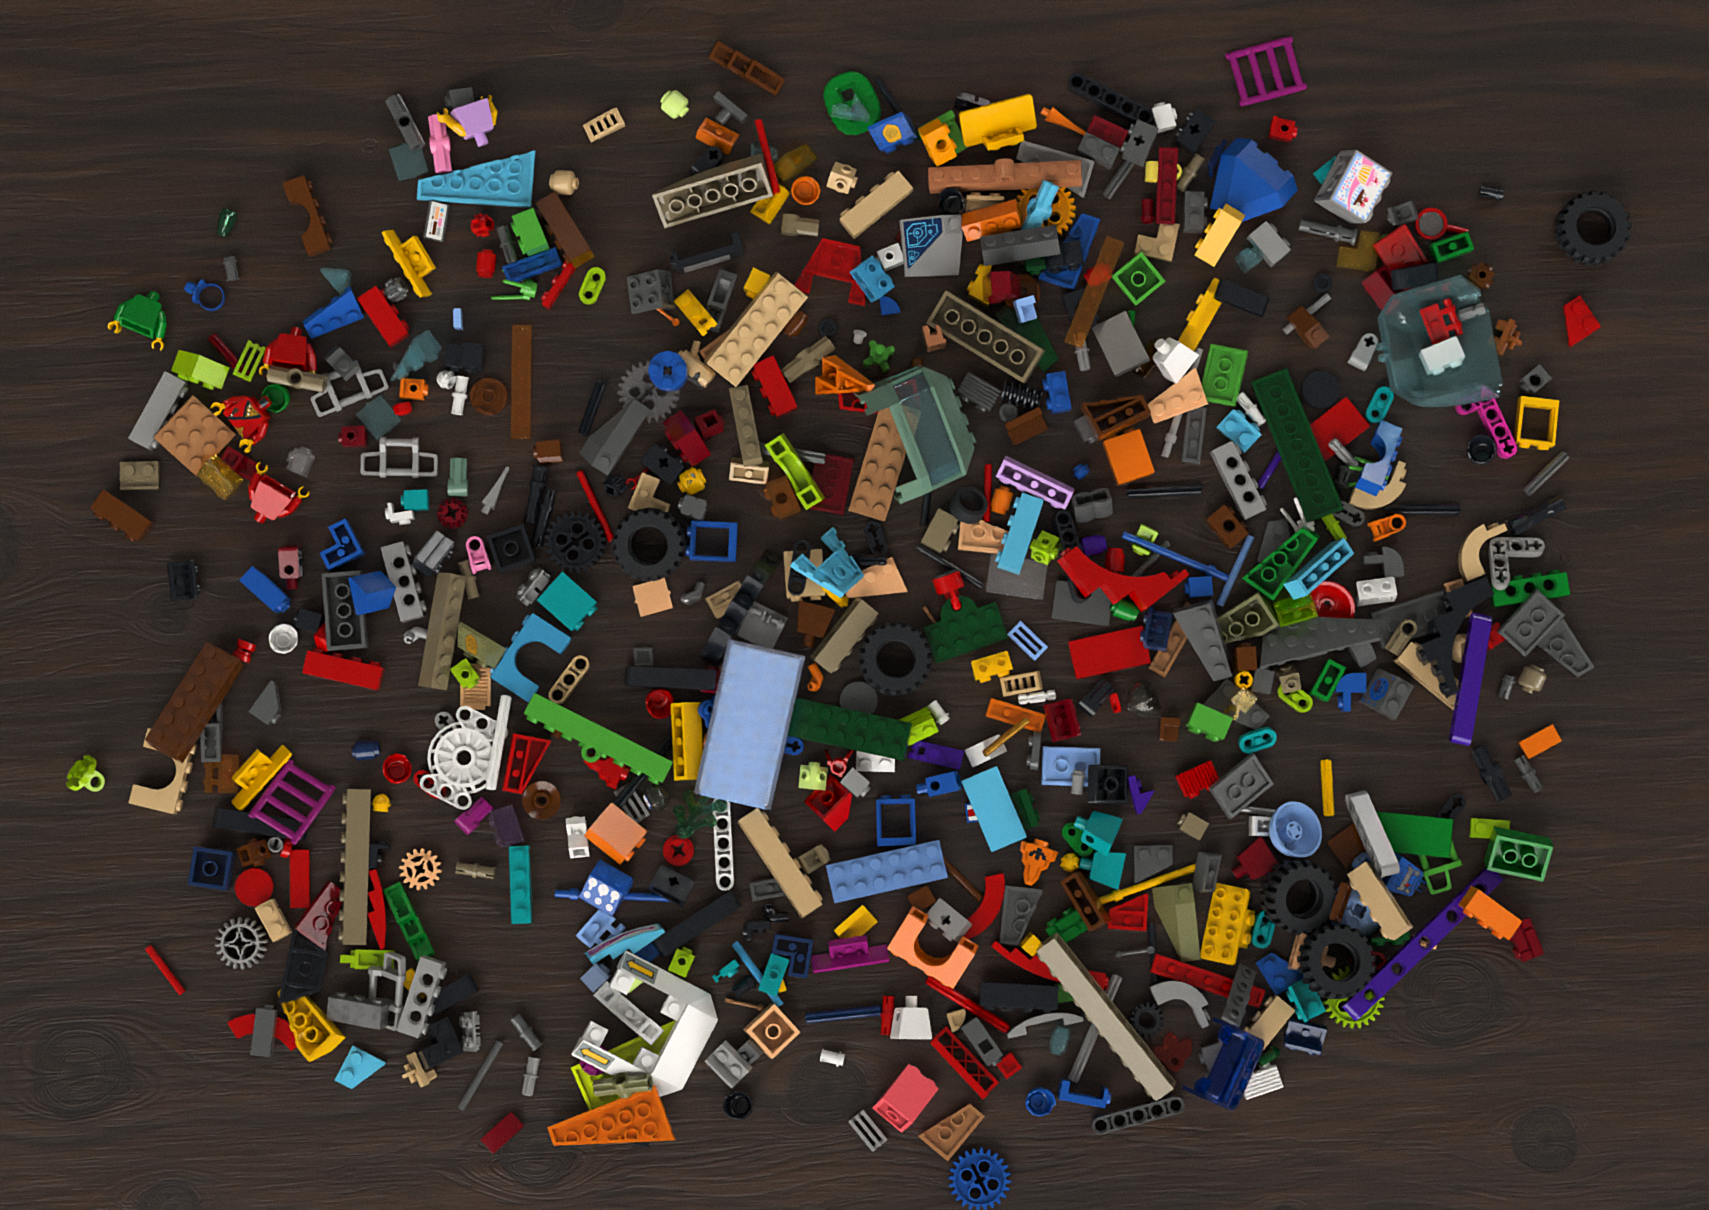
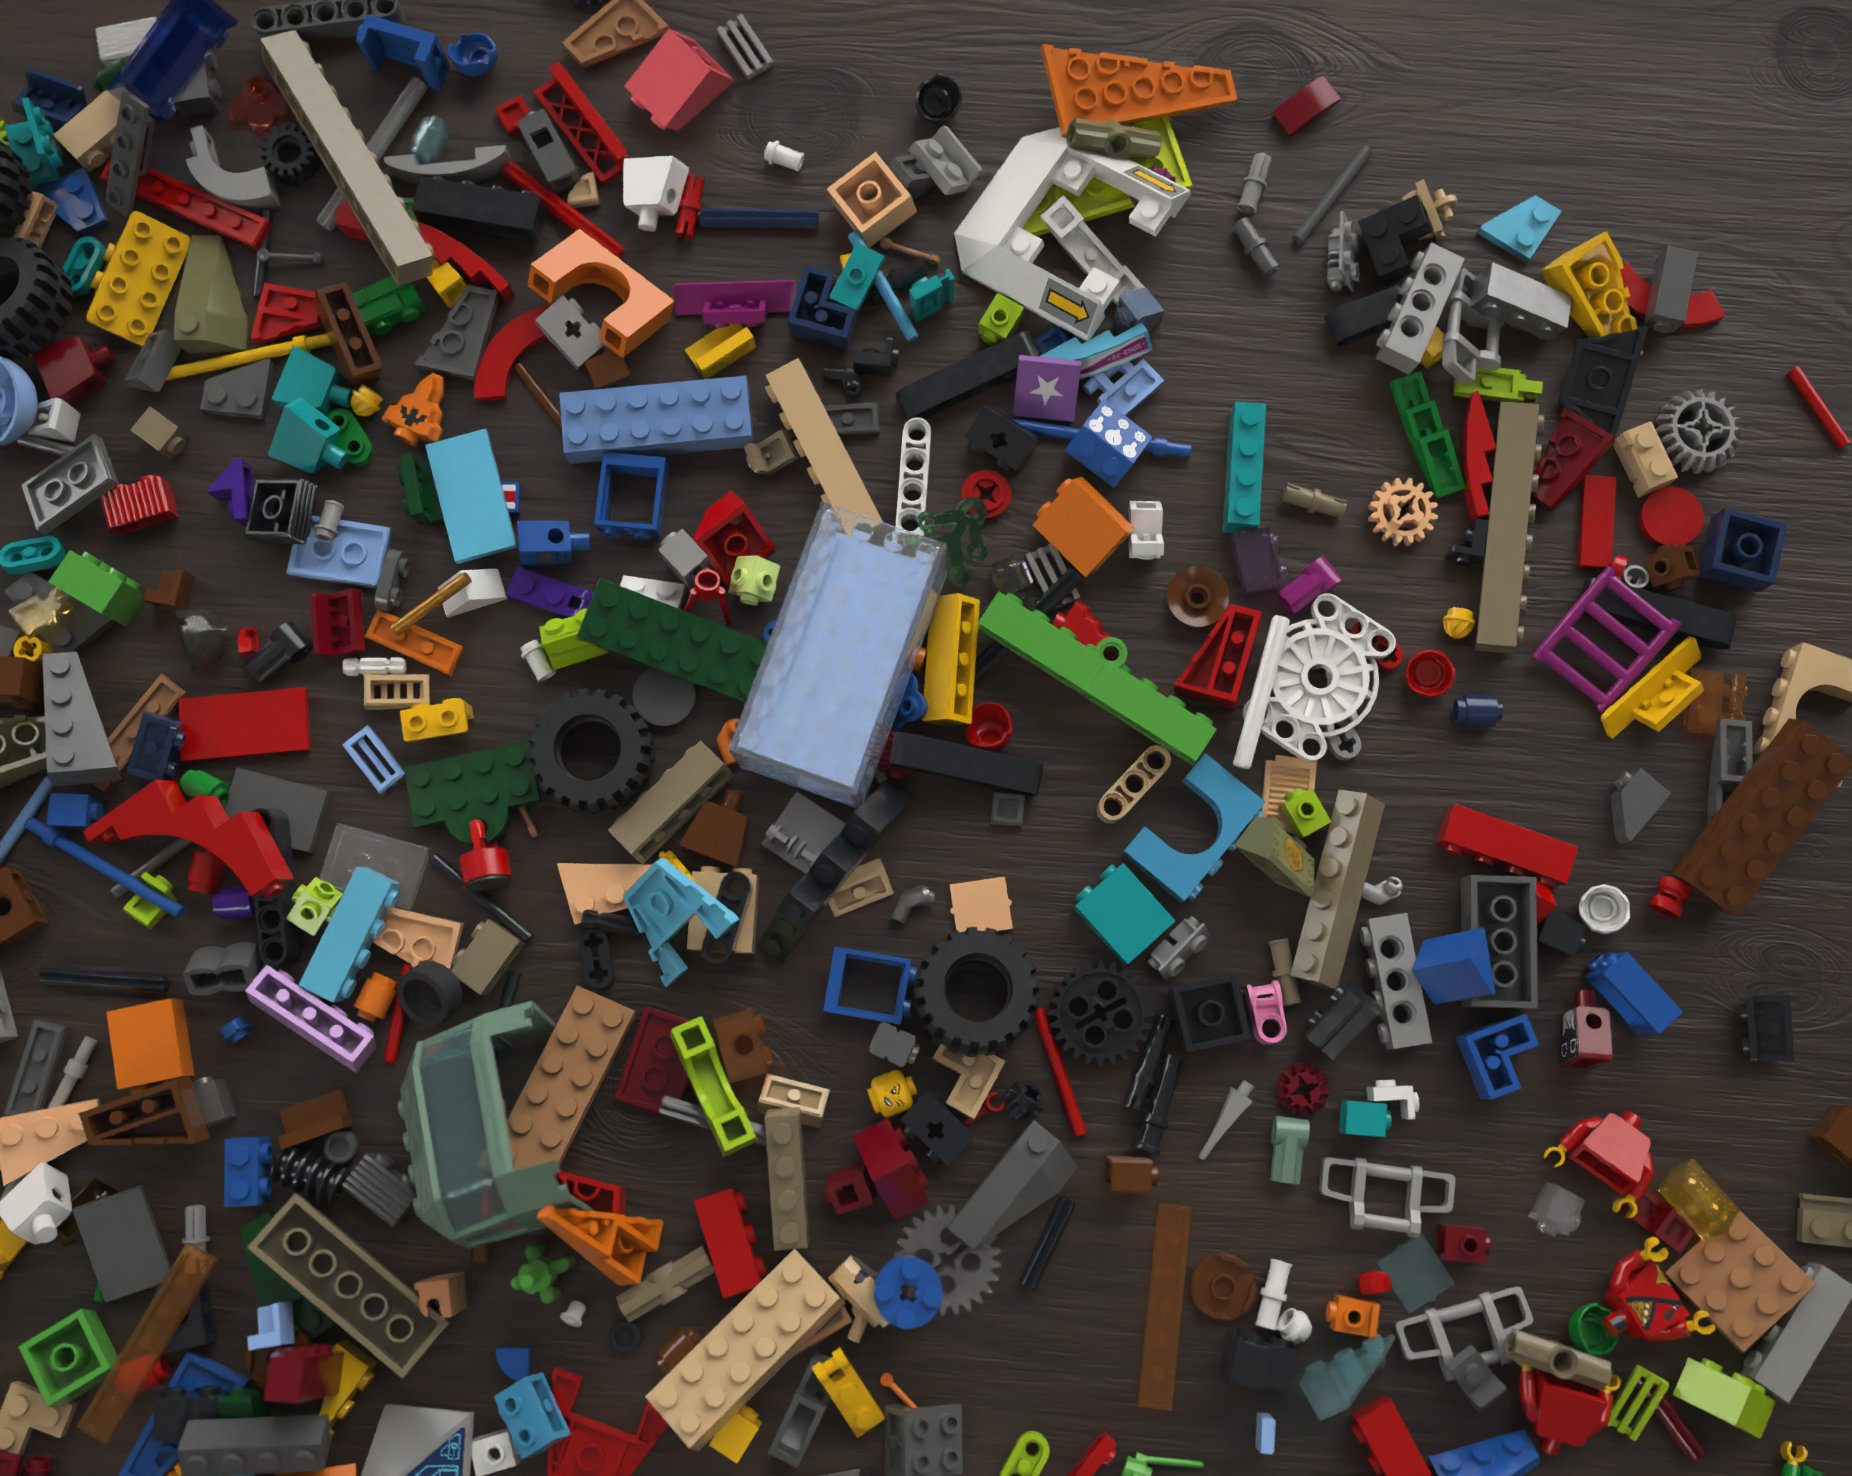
camera: 165 degrees left, 5 degrees down
(648, 920) = (1046, 388): none -> medium lavender tile

